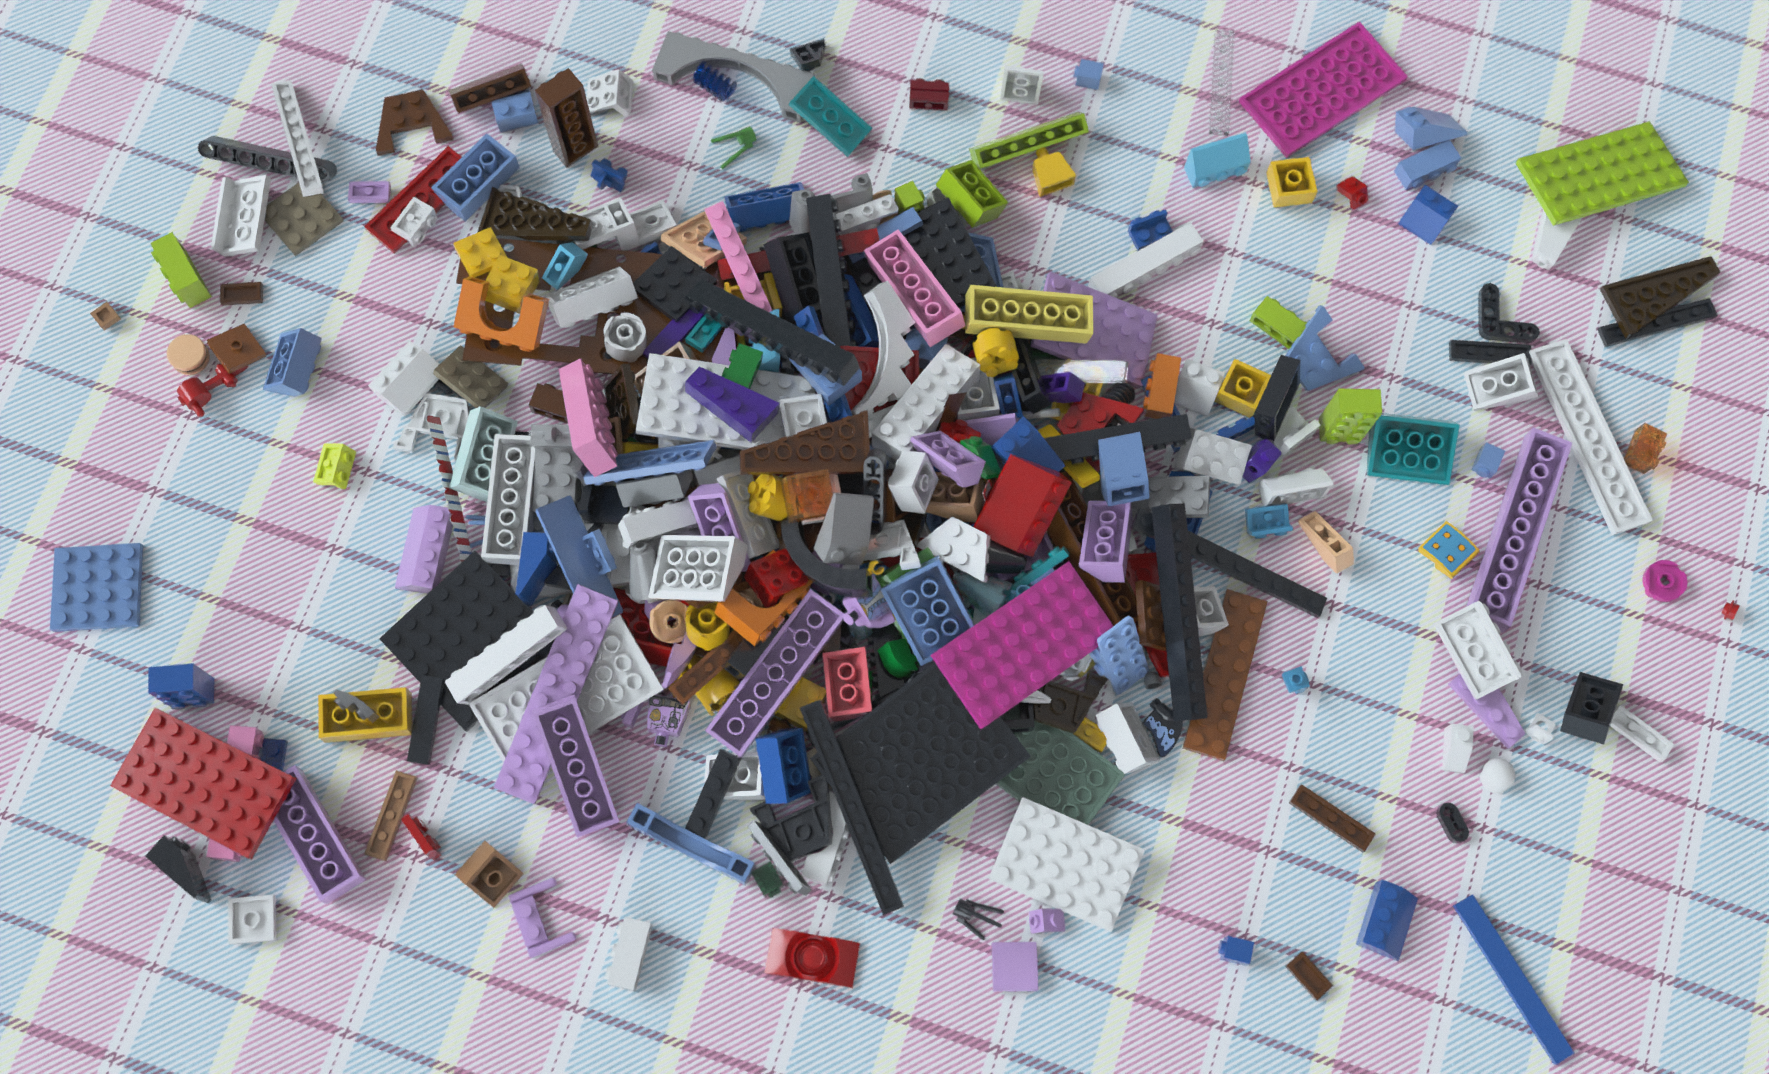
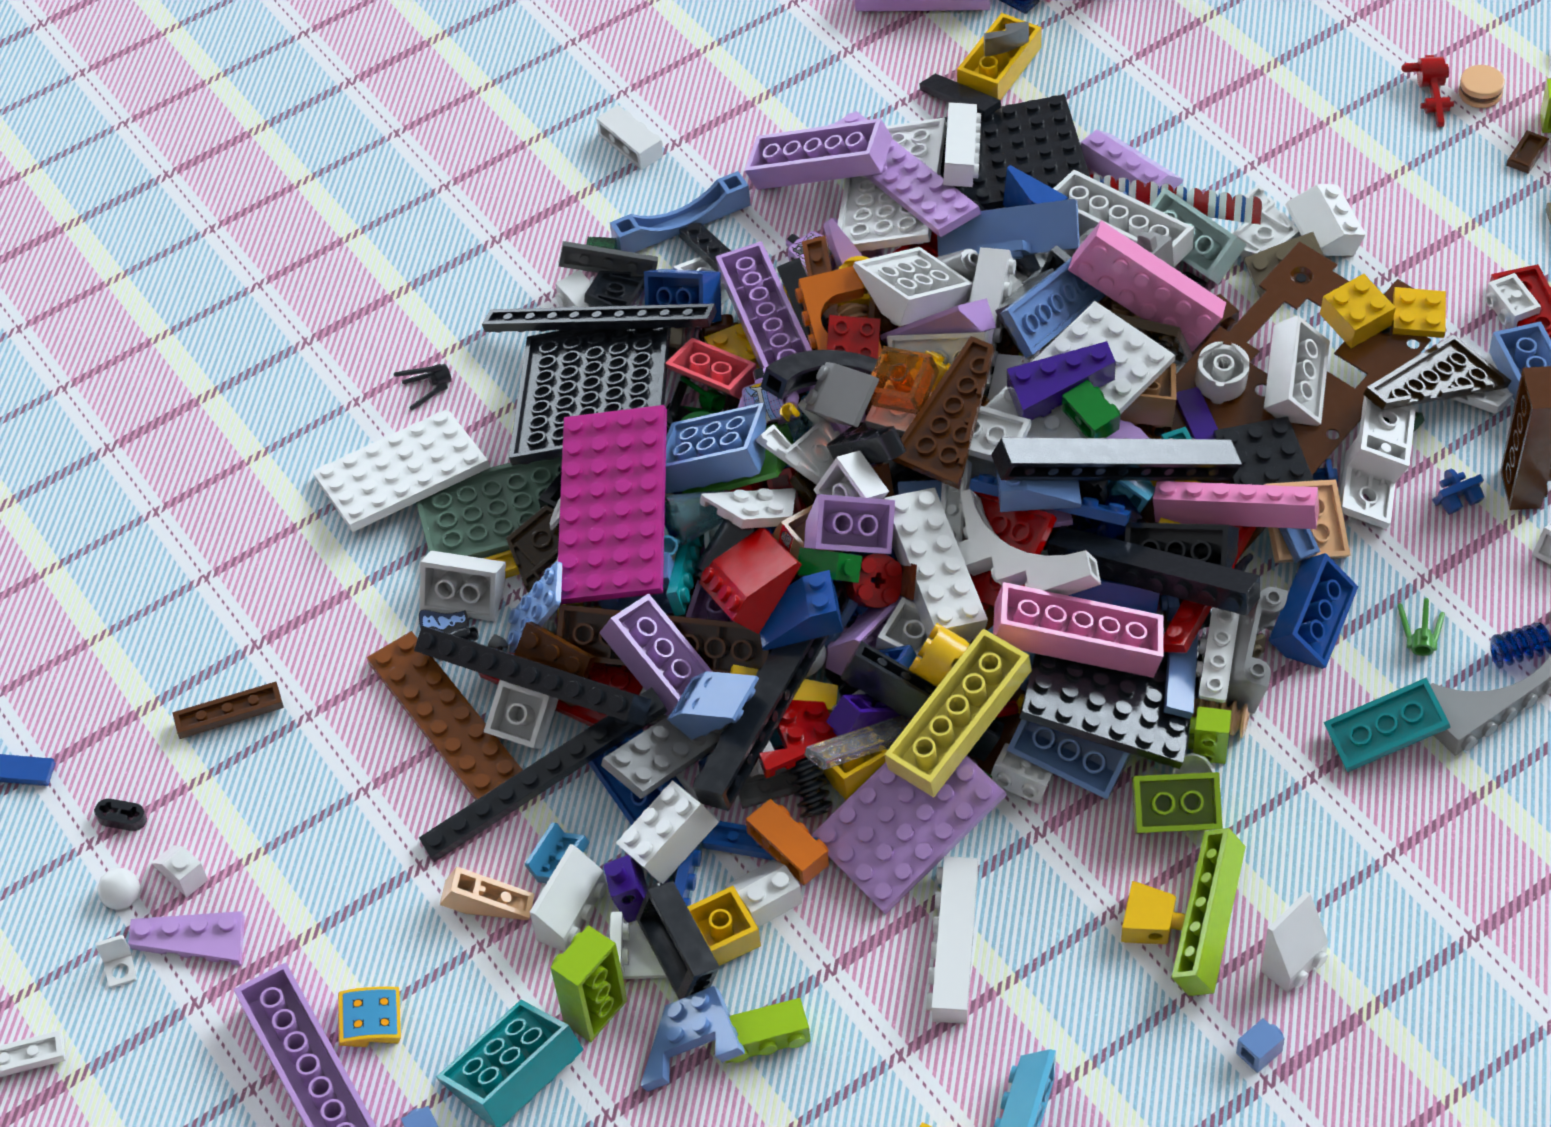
camera: 135 degrees right, 20 degrees down
(236, 348) = (1461, 119): dark orange plate -> none
(293, 363) = (1411, 153): medium blue slope -> none
(335, 465) = (1272, 140): neon yellow bracket -> none
(390, 815) = (897, 47): medium nougat tile -> none
(425, 841) = (854, 45): red plate -> none
(473, 318) = (1298, 287): orange arch -> none
(489, 874) = (785, 80): medium nougat slope -> none
(531, 922) = (719, 93): lavender plate -> none
(564, 264) = (1352, 371): medium azure slope -> none
(809, 55) = (1494, 756): black wing -> none
(812, 957) = (506, 256): red slope -> none
(929, 94) = (1352, 851): dark red brick -> none
(1014, 966) = (357, 385): lavender slope -> none
(1046, 920) = (368, 429): lavender bracket -> none
(1149, 229) = (993, 977): blue bracket -> none
(1236, 950) = (200, 552): blue brick -> none
(1296, 680) = (375, 761): dark azure bracket -> none
(1309, 976) = (123, 601): reddish brown tile -> none
(1387, 919) = (98, 691): blue slope -> none
(1478, 649) = (243, 938): white bracket -> none
(1591, 708) = (87, 1020): black slope -> none

